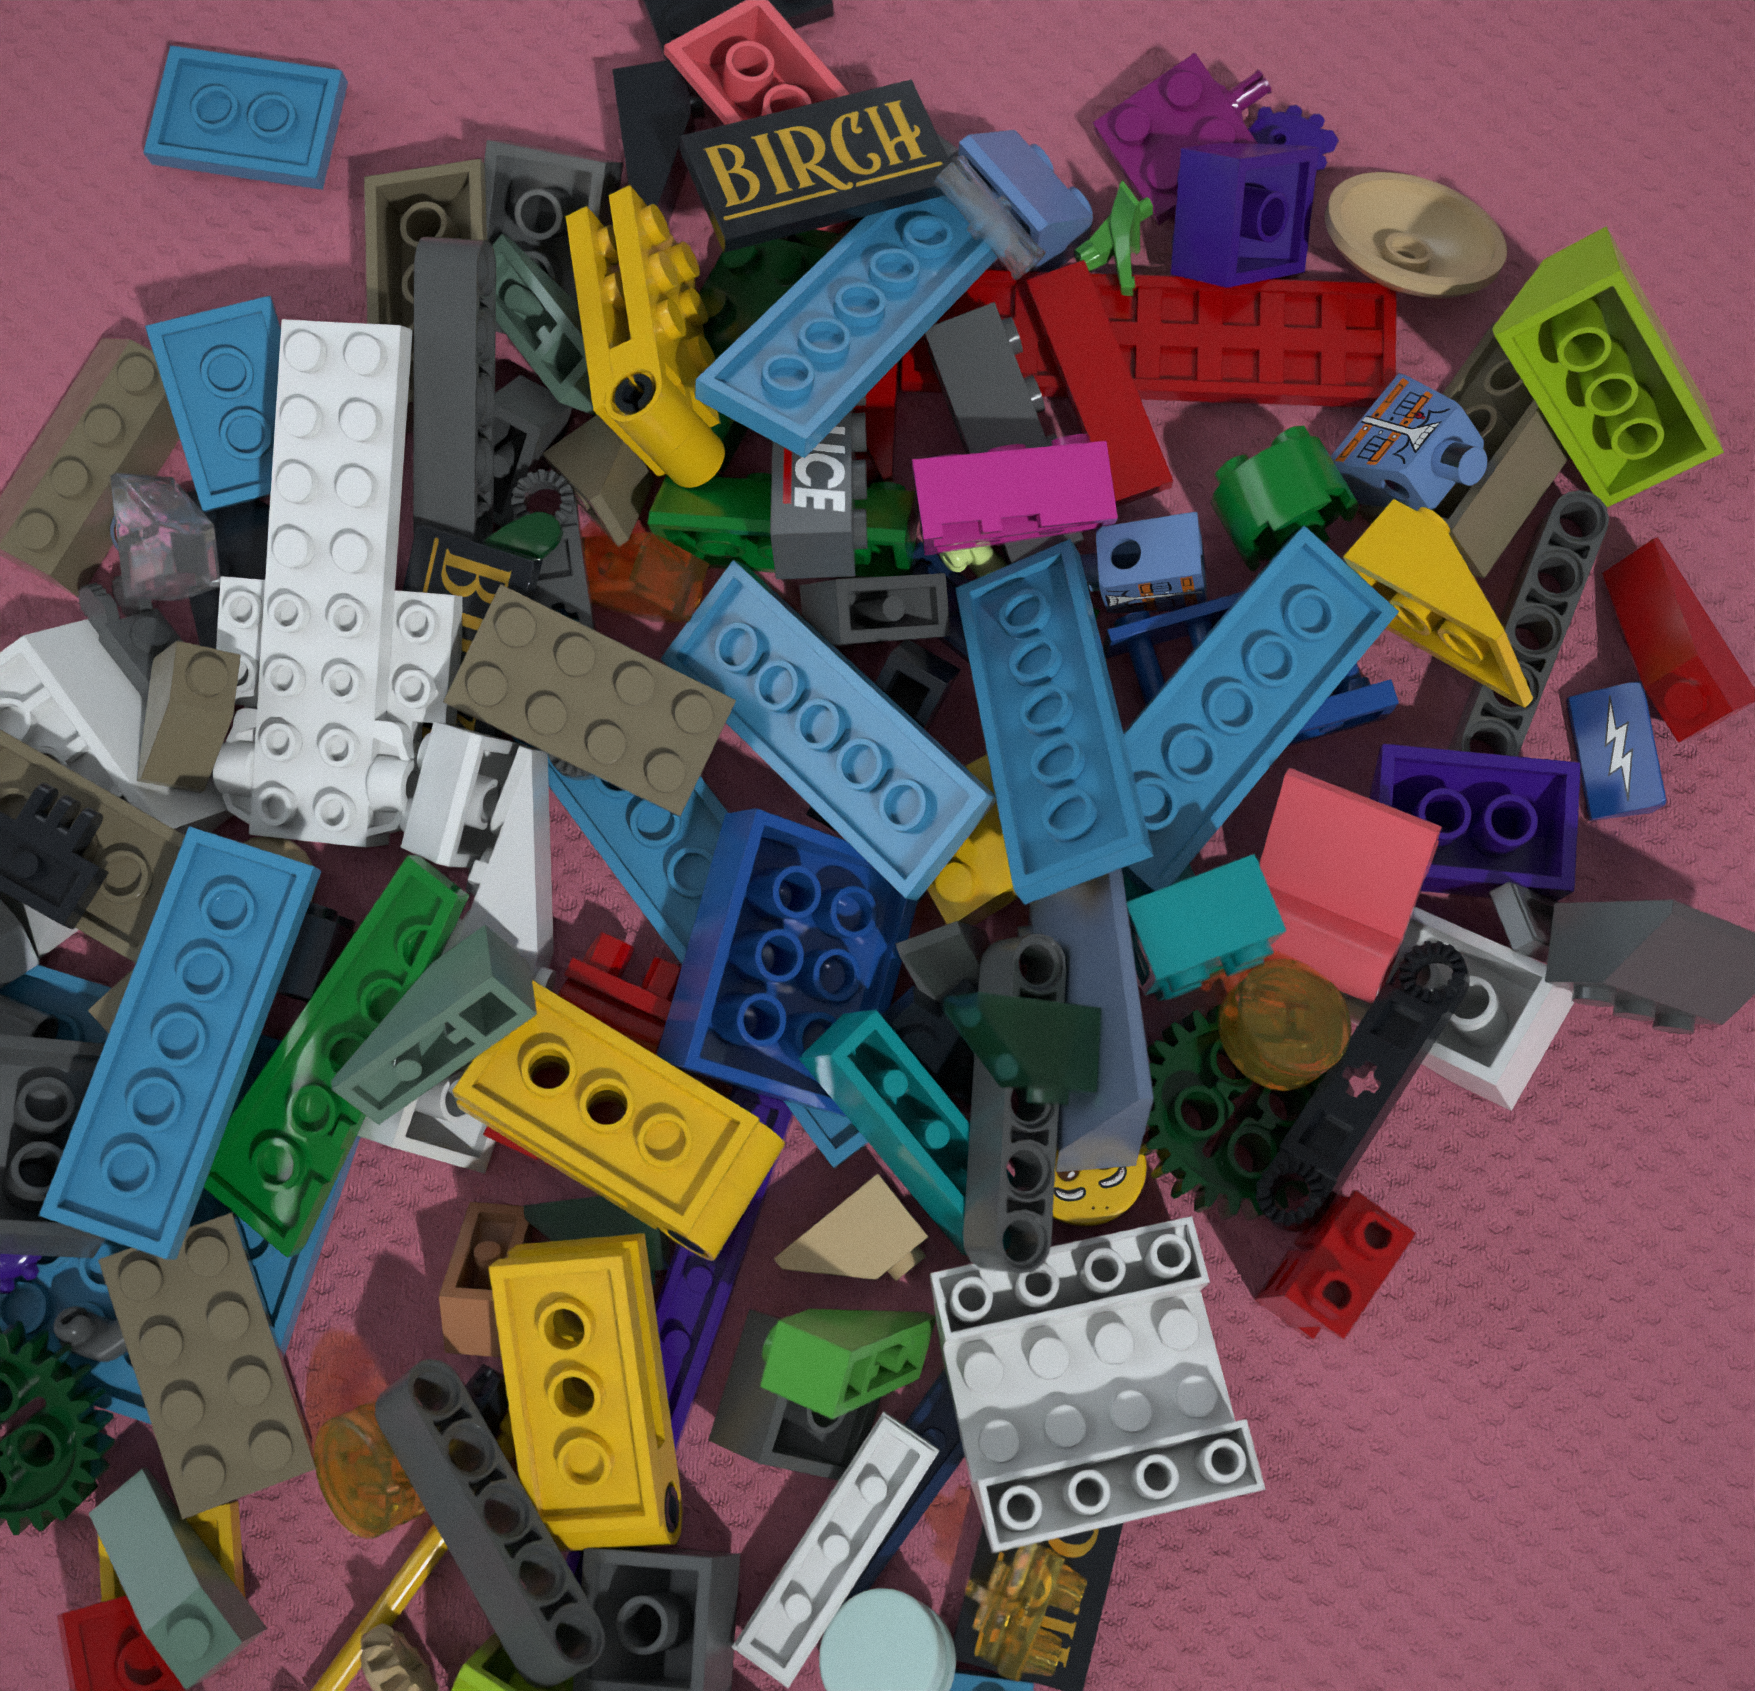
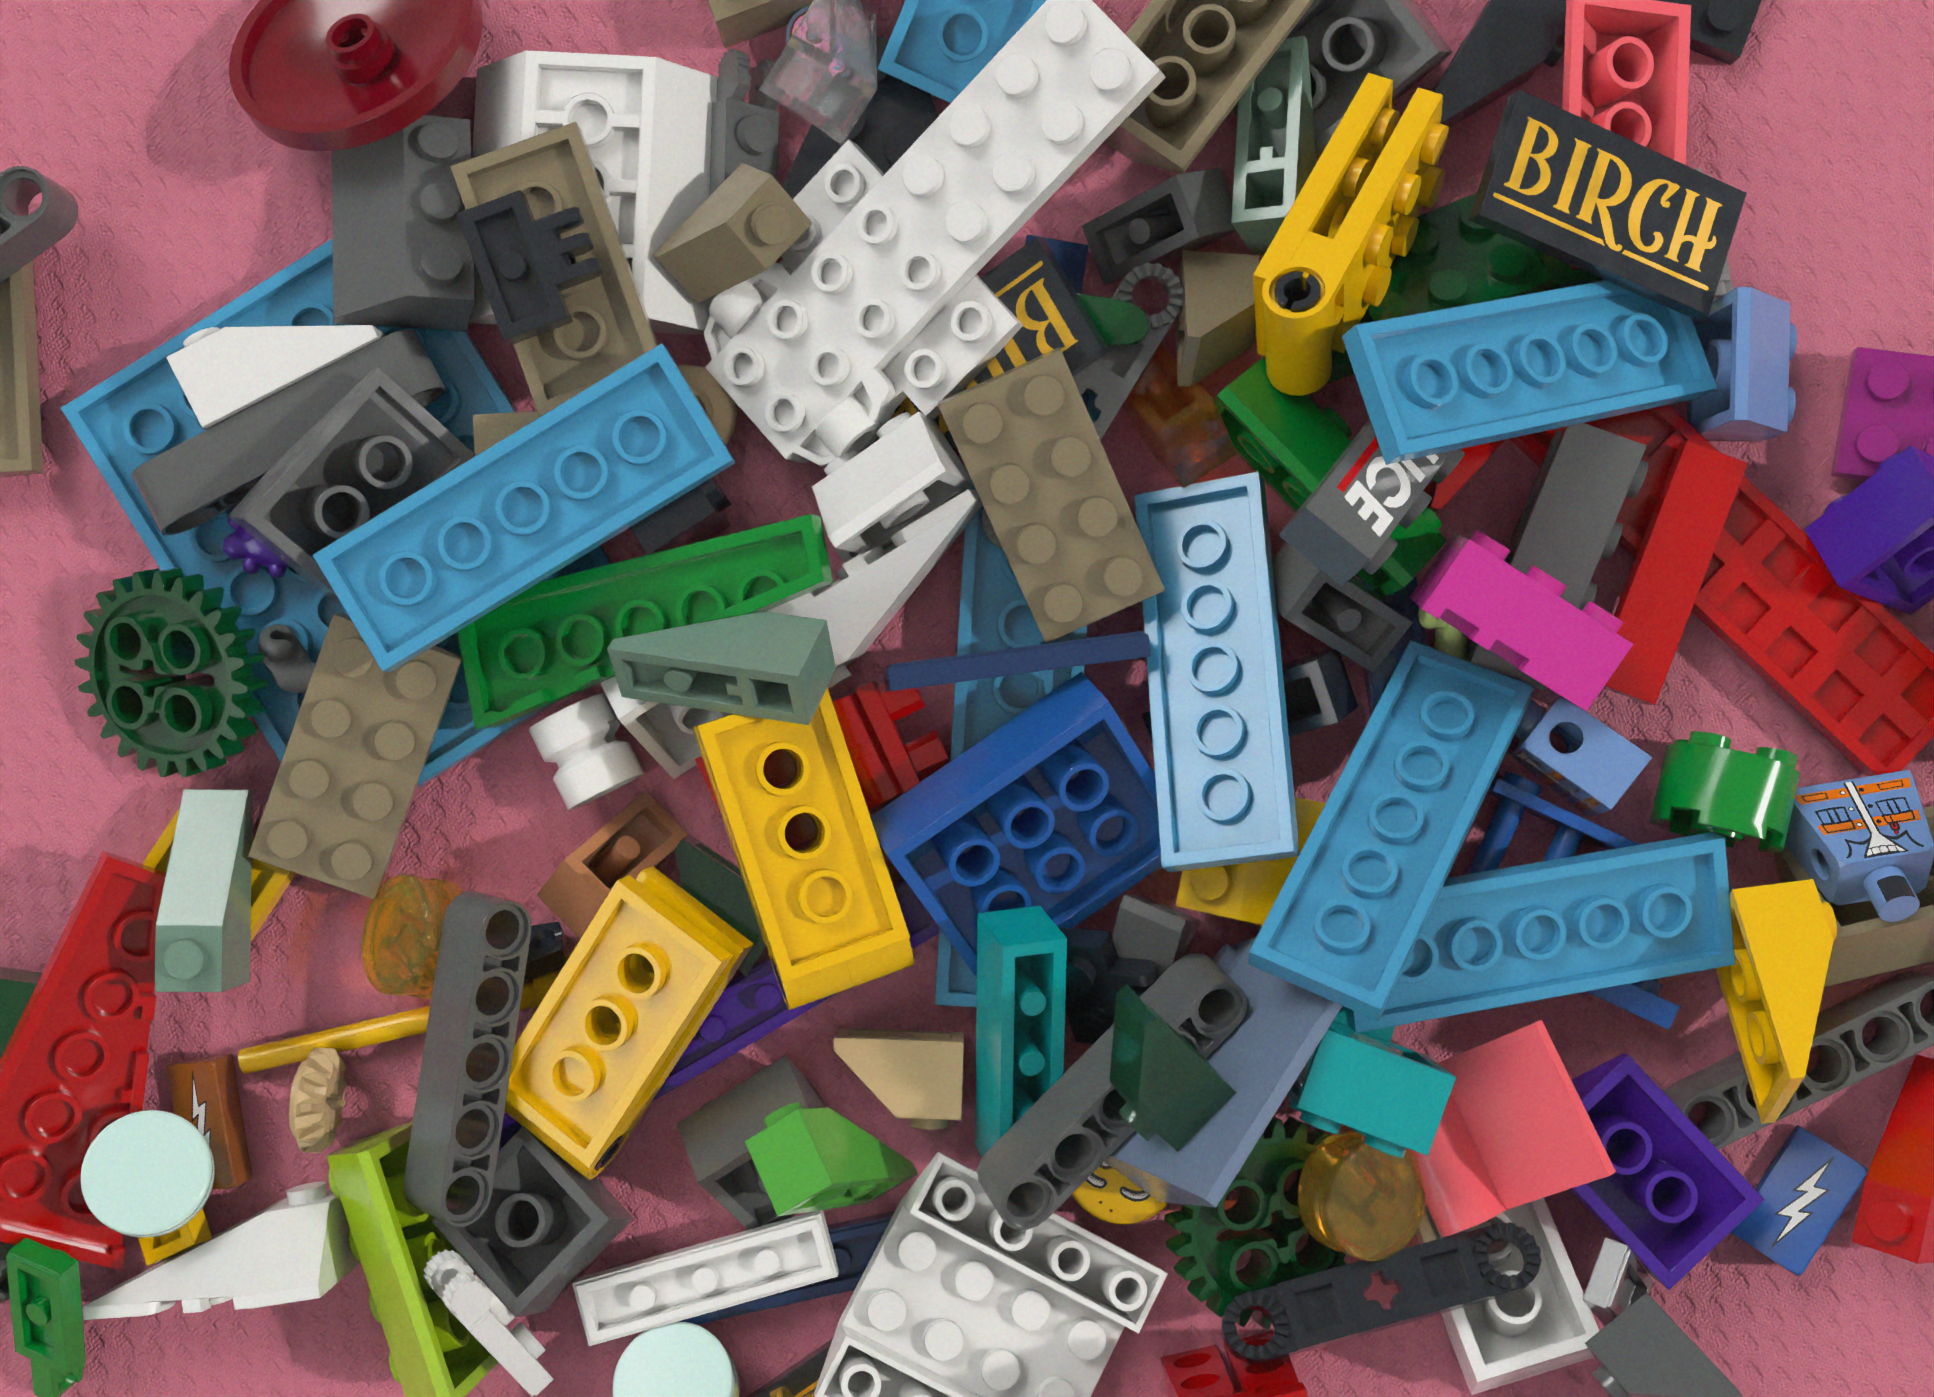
camera: 35 degrees right, 10 degrees up
(388, 1203) = (586, 751): none -> white wheel
(454, 385) = (1161, 145): dark grey beam -> none
(667, 848) = (1016, 661): none -> dark blue tile
(989, 217) = (1705, 371): clear pin -> none
(1118, 237) = (1789, 466): bright green piece -> none

